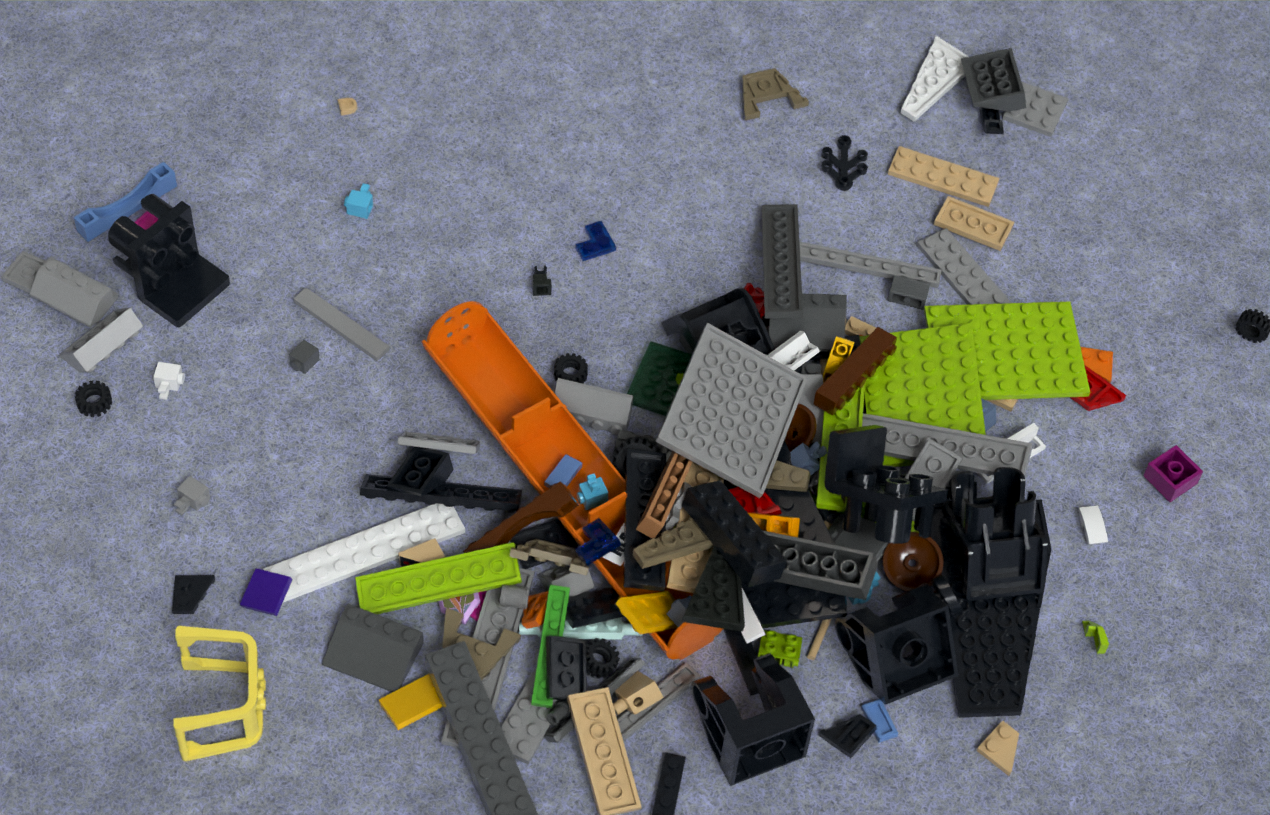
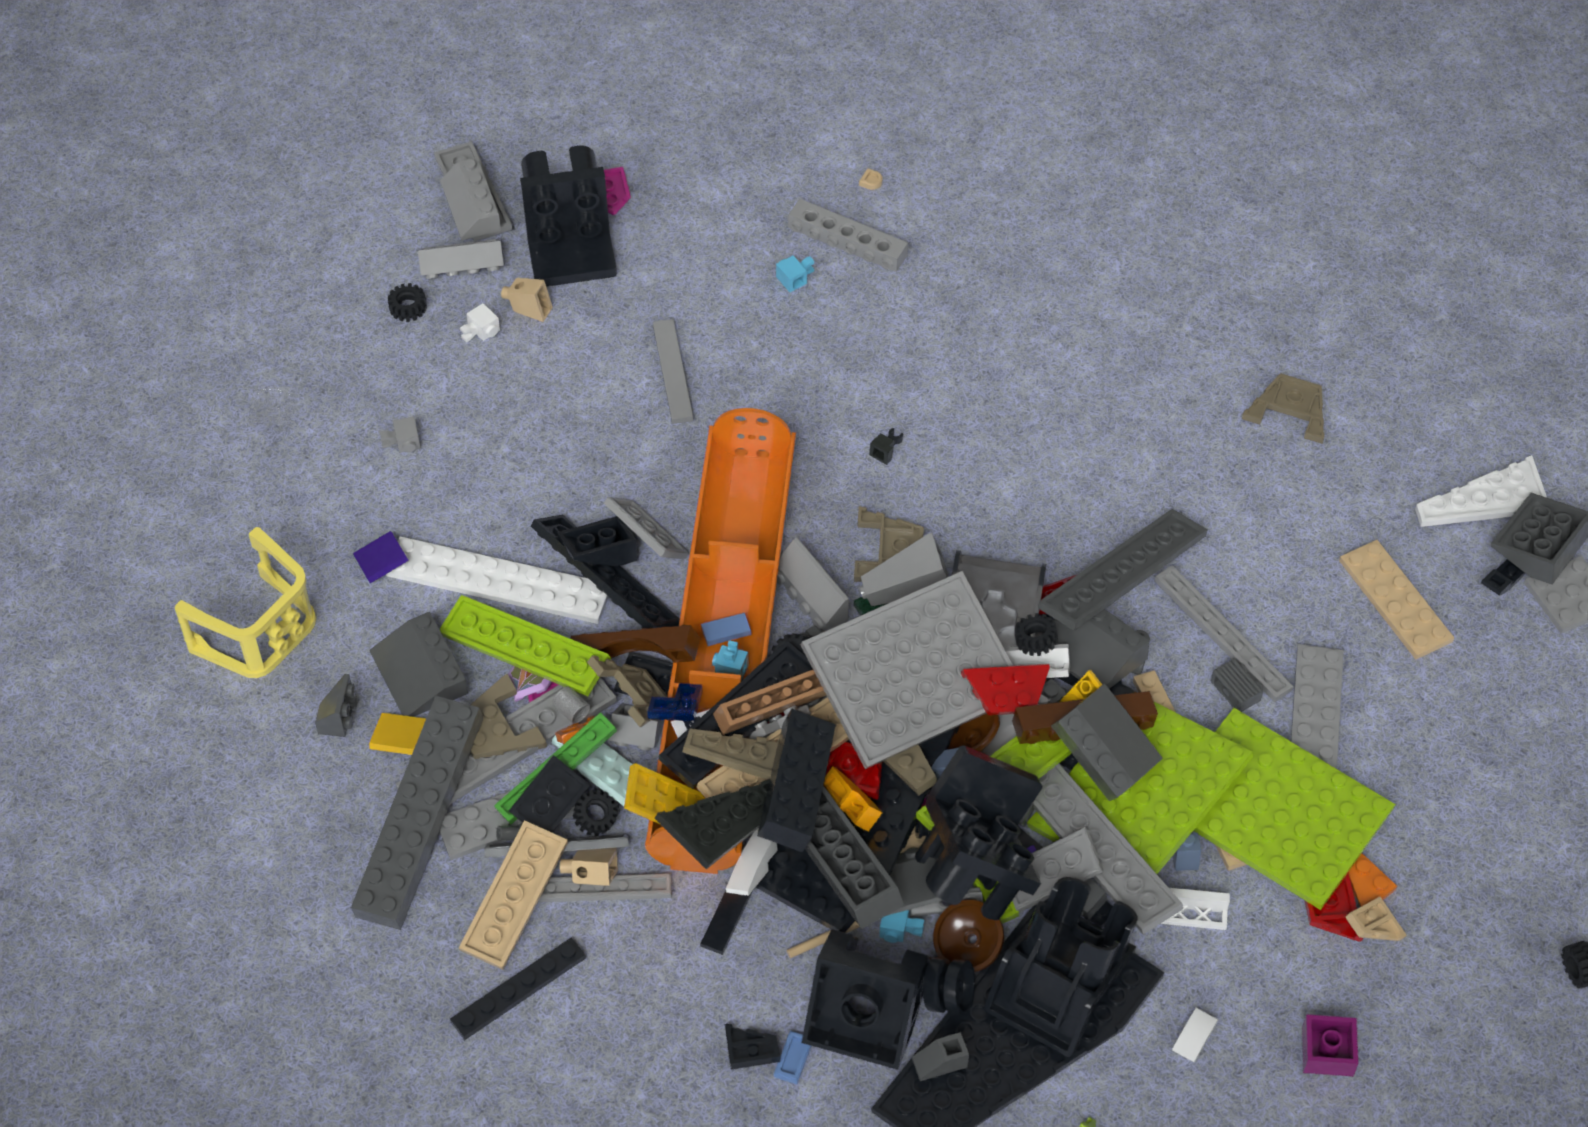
camera: 45 degrees right, 0 degrees up
(97, 220) = (632, 149): medium blue arch -> none
(186, 337) = (528, 298): none -> tan torso
(189, 592) = (325, 515): black wing -> none
(304, 357) = (609, 378): dark grey brick -> none
(348, 719) = (336, 708): none -> dark grey slope
(372, 153) = (848, 235): none -> light grey brick
(421, 553) = (538, 614): tan slope -> none
(574, 362) = (831, 533): black tyre -> none
(593, 607) = (617, 756): black plate -> none
(599, 243) = (977, 447): clear blue plate -> none
(614, 341) = (894, 537): none -> dark tan wing
(651, 354) = (905, 572): none -> light grey slope
(762, 741) = (654, 987): black brick -> none
(778, 345) = (1034, 625): none -> black tyre
(781, 646) = (767, 923): lime hinge -> none
(797, 382) = (1007, 687): none -> red wing
(844, 144) = (1300, 523): black plant -> none
(887, 377) = (1107, 742): none -> dark grey slope
(974, 223) = (1378, 664): tan plate -> none
(975, 648) = (941, 1057): none -> dark grey slope
(1124, 381) = (1375, 922): none -> tan wing

